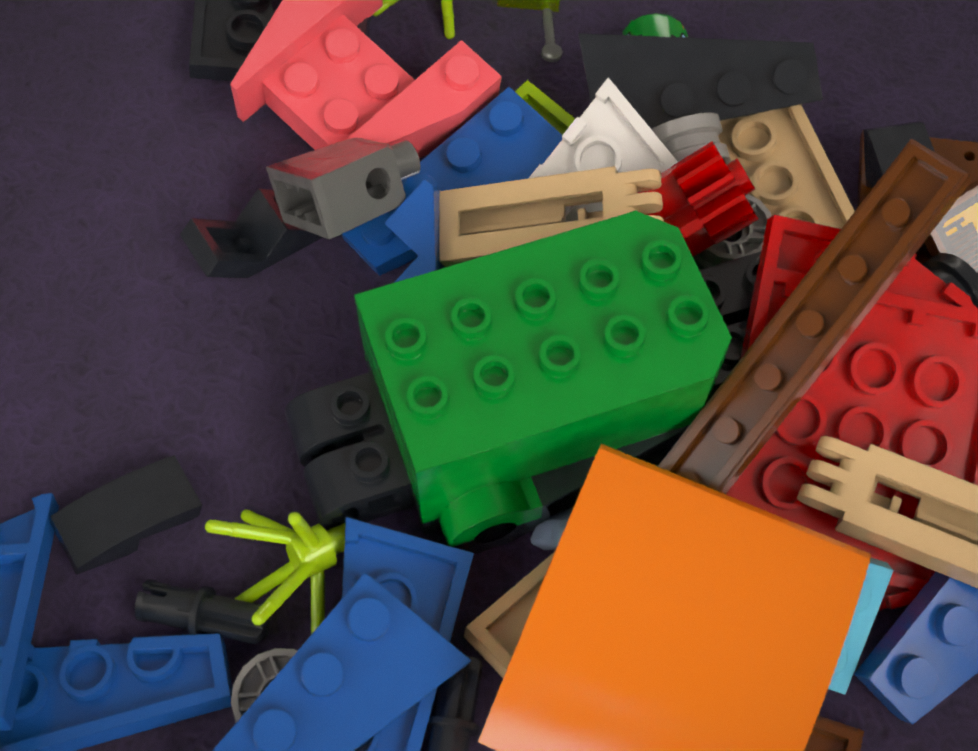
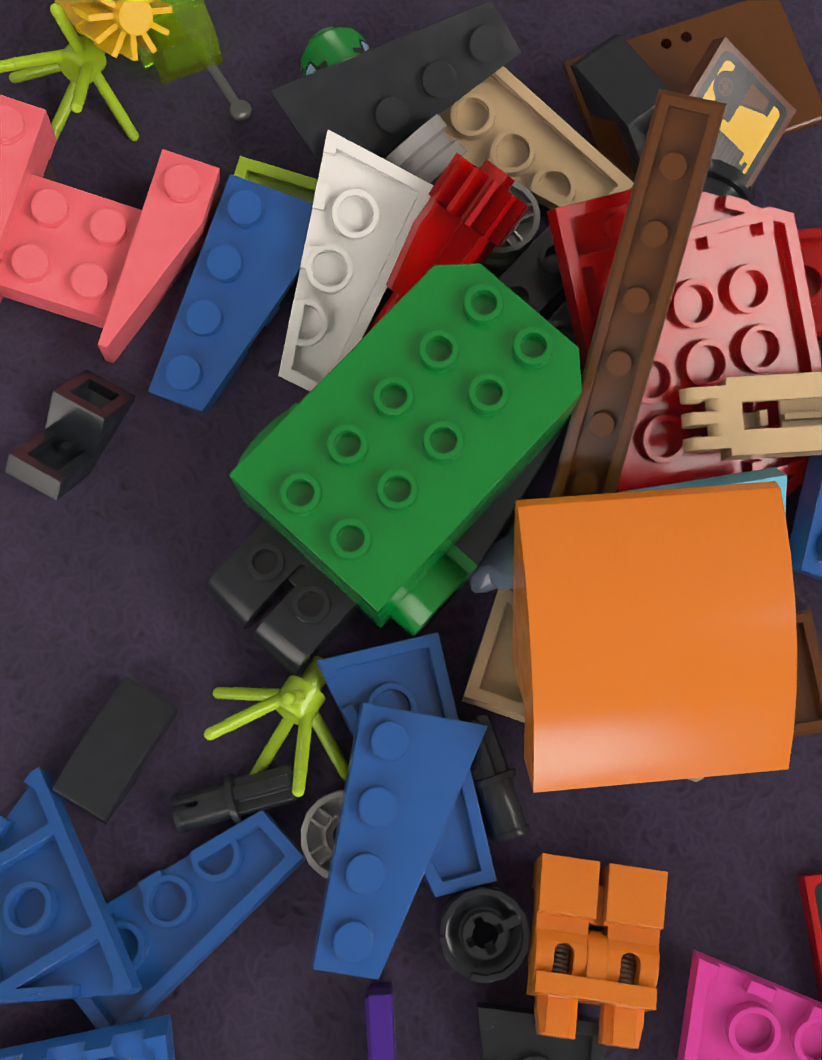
camera: 30 degrees left, 15 degrees up
(342, 184) = (137, 356): dark grey torso -> none
(418, 227) = (232, 362): blue slope -> none
(517, 212) = (323, 306): tan hinge -> none

